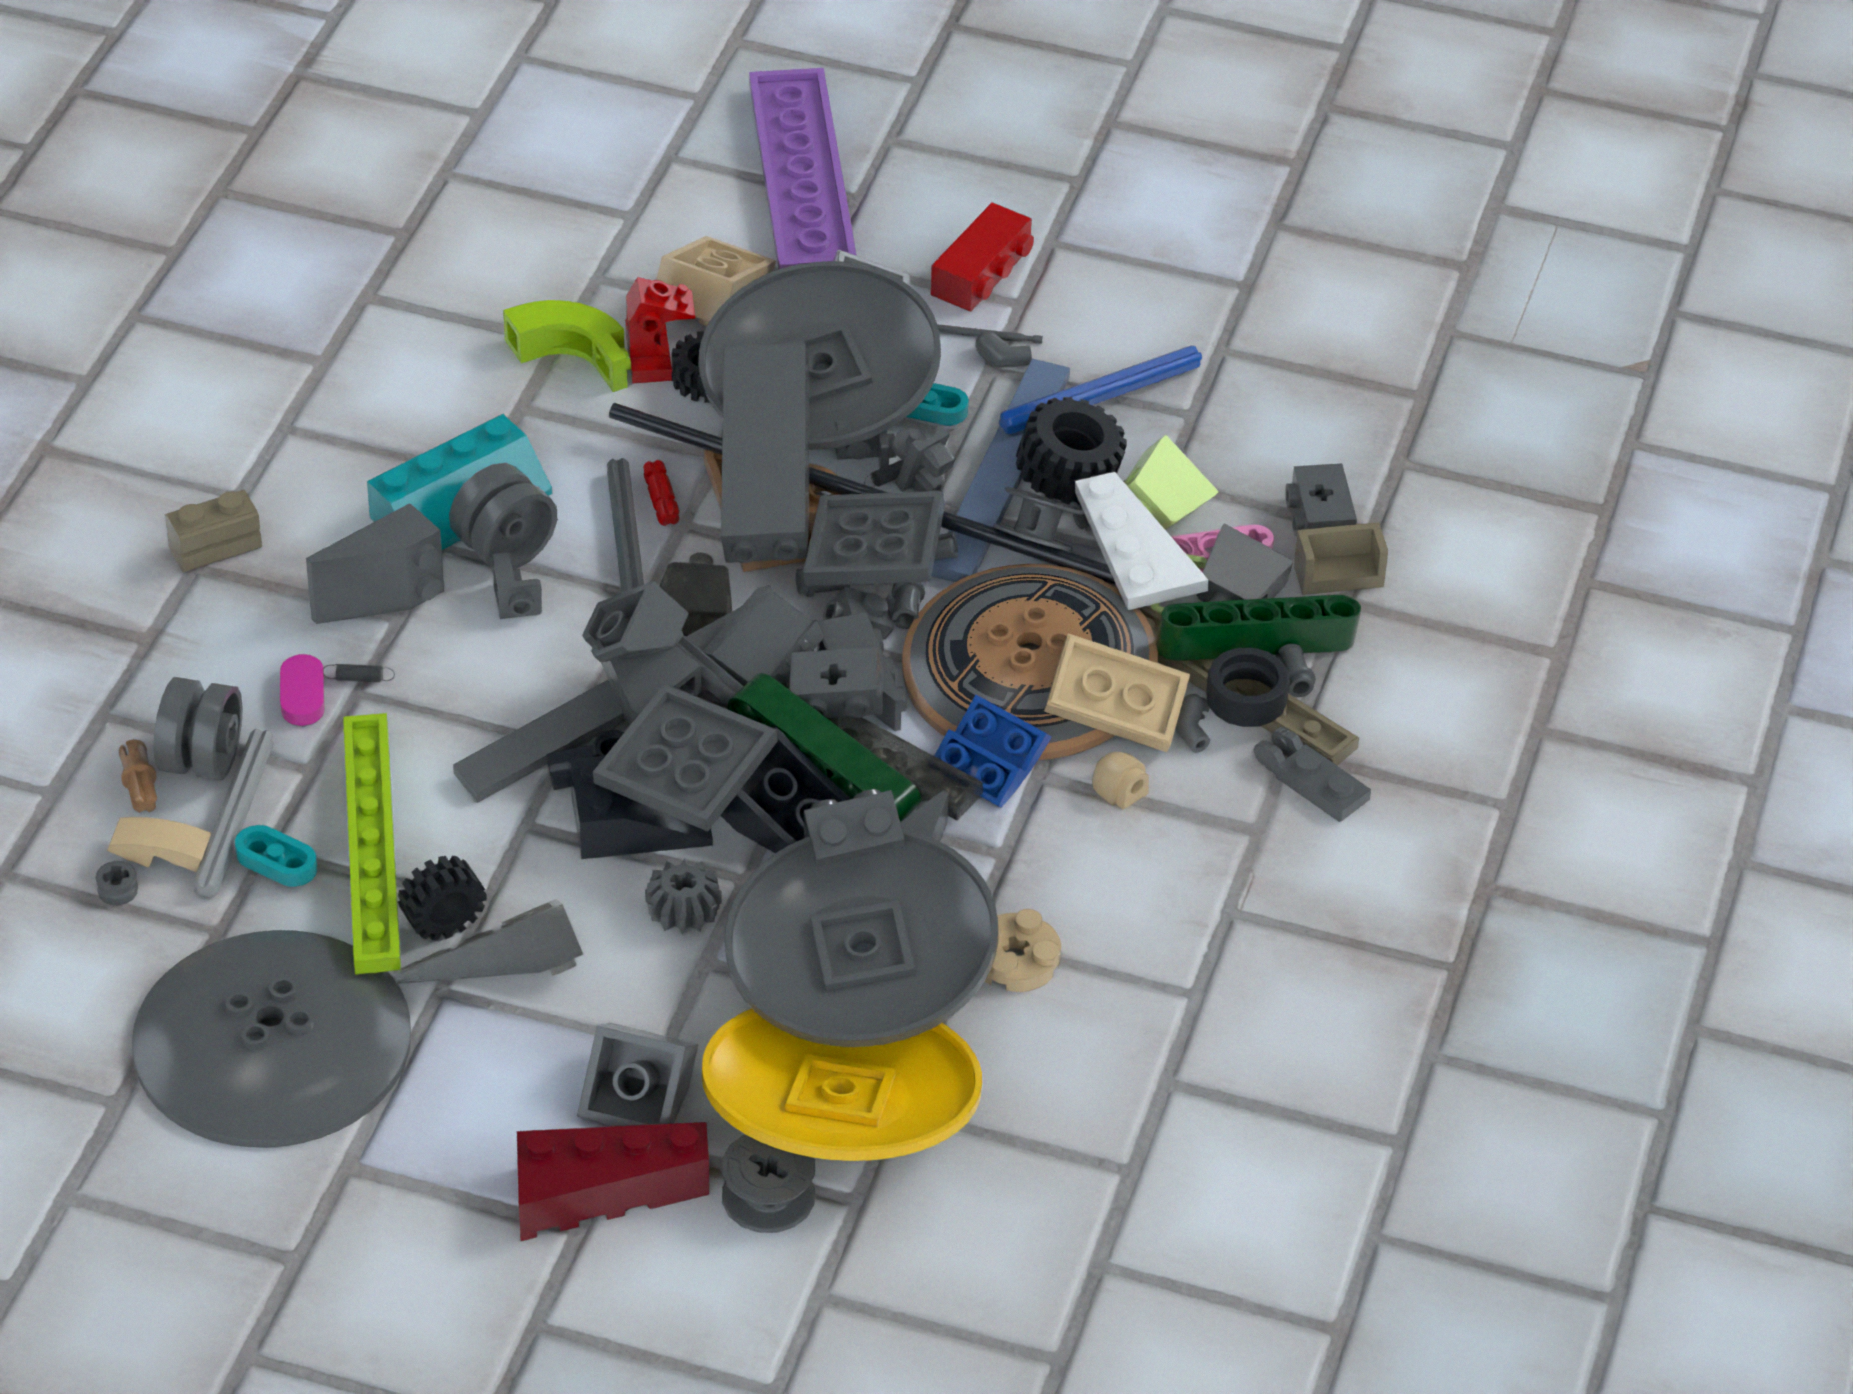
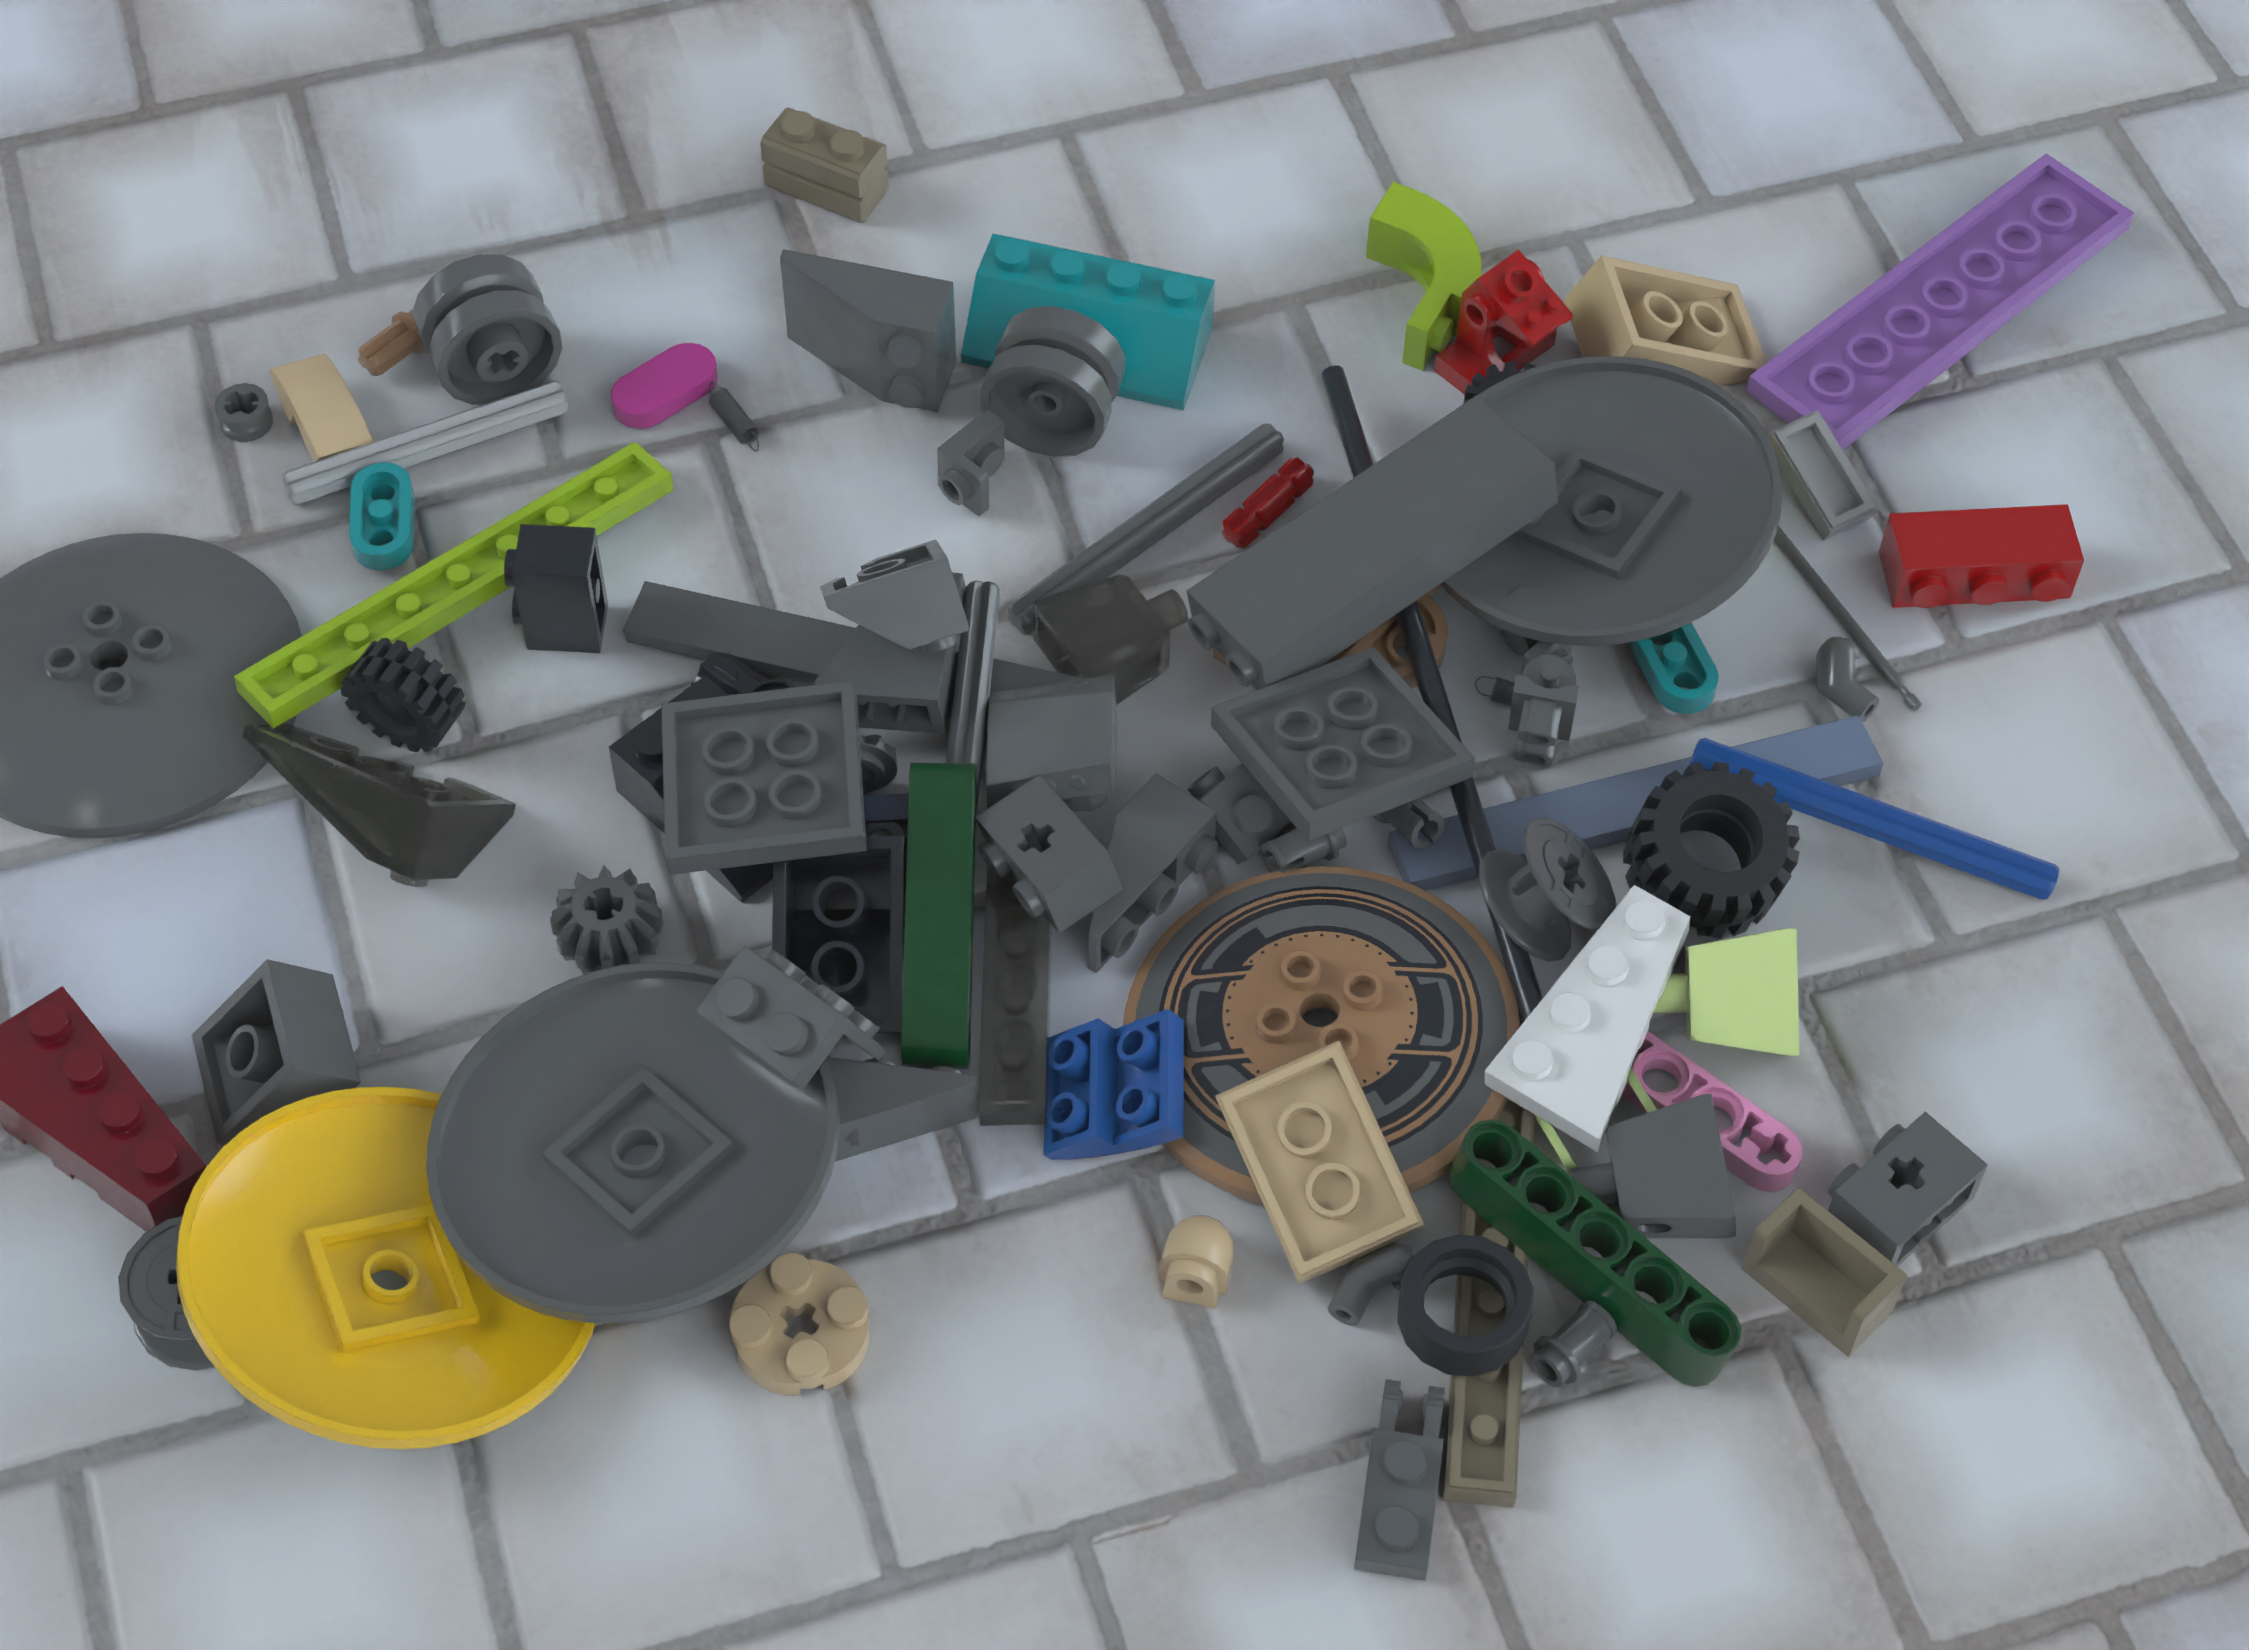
camera: 55 degrees right, 10 degrees up
(435, 792) = (558, 588): none -> black brick

